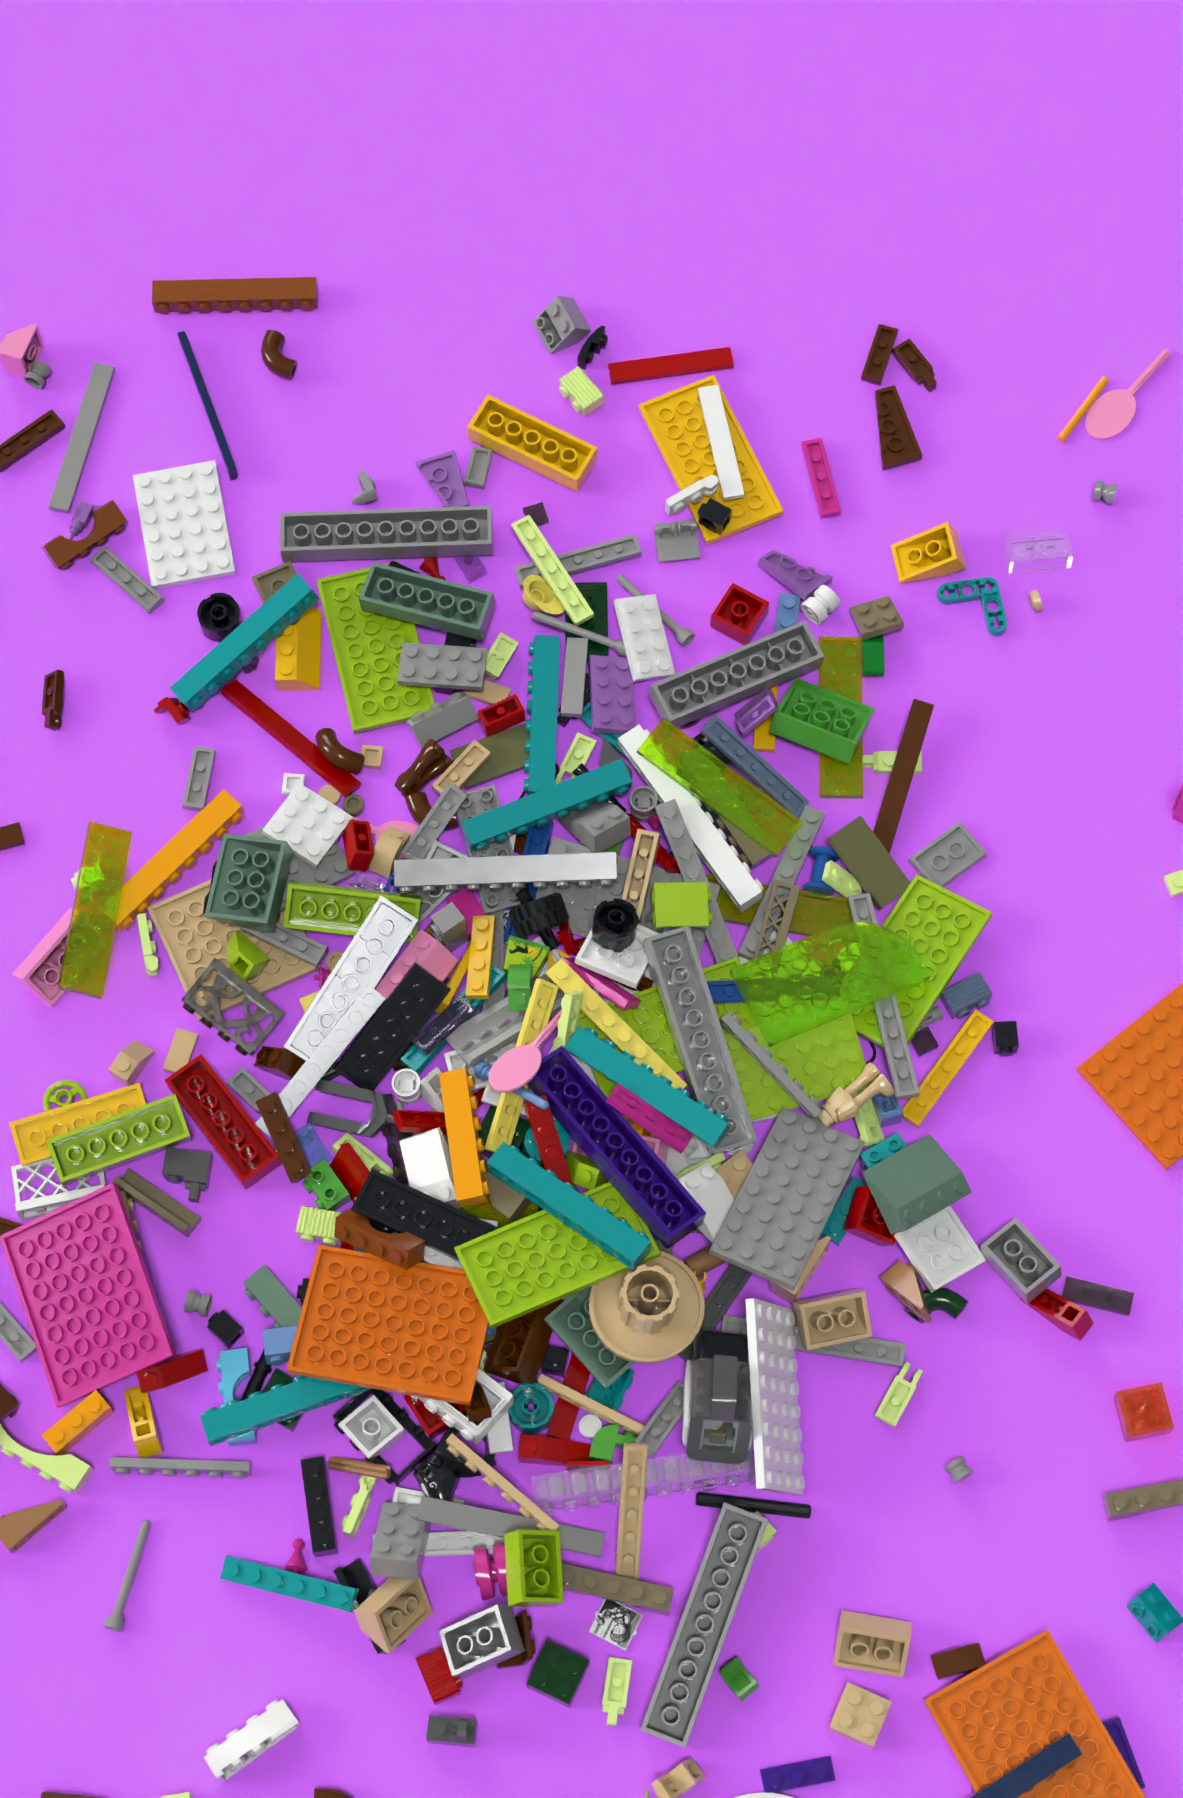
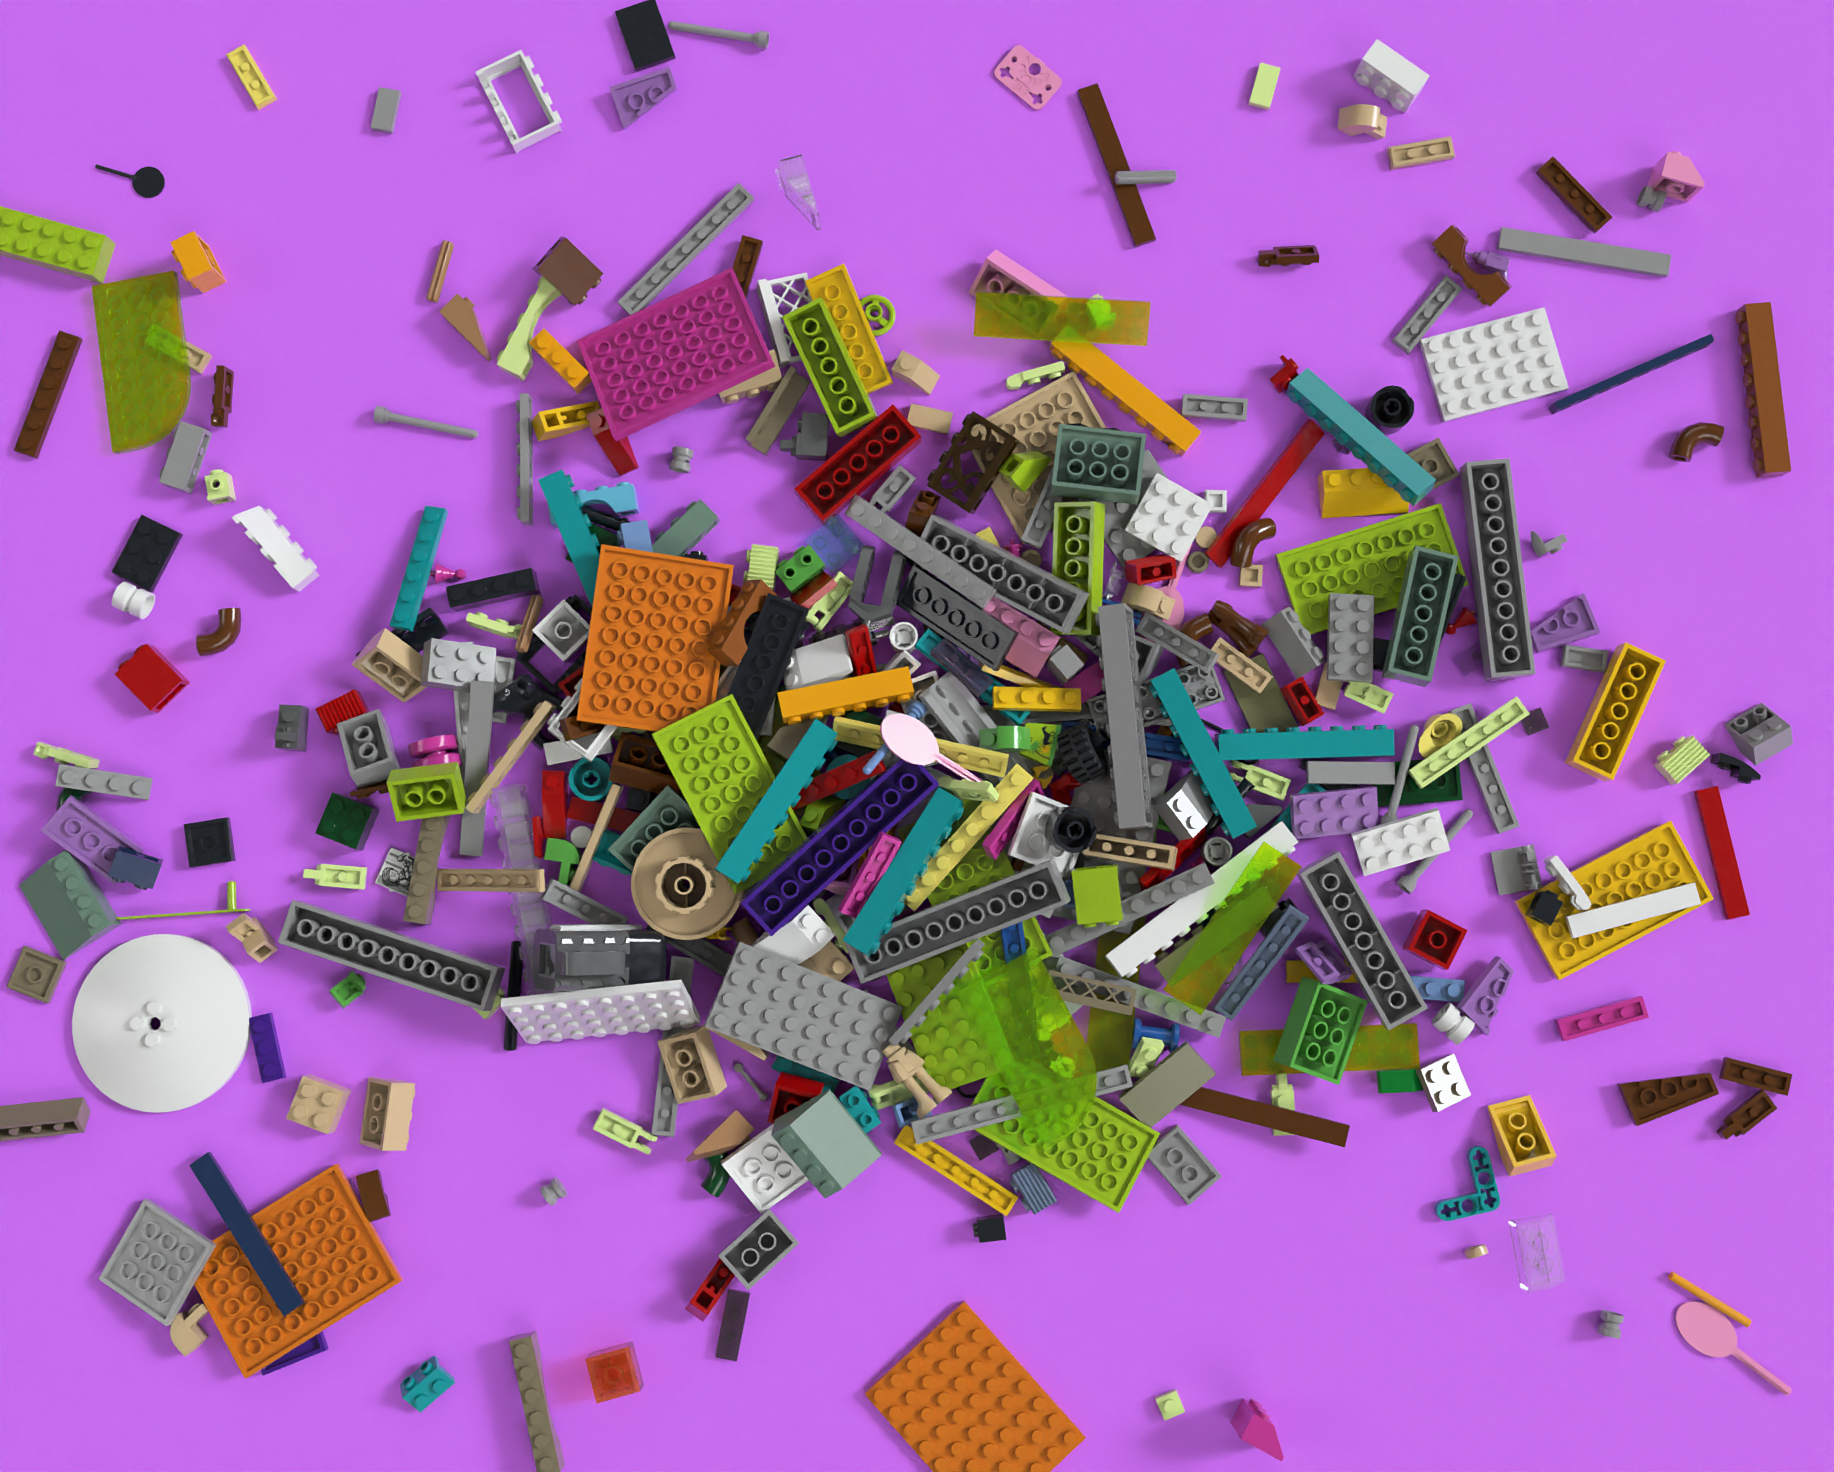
camera: 85 degrees right, 15 degrees up
(225, 1328) = (657, 487): black brick -> none
(284, 1137) = (841, 523): reddish brown plate -> none
(838, 1277) = (739, 1068): none -> light grey hinge

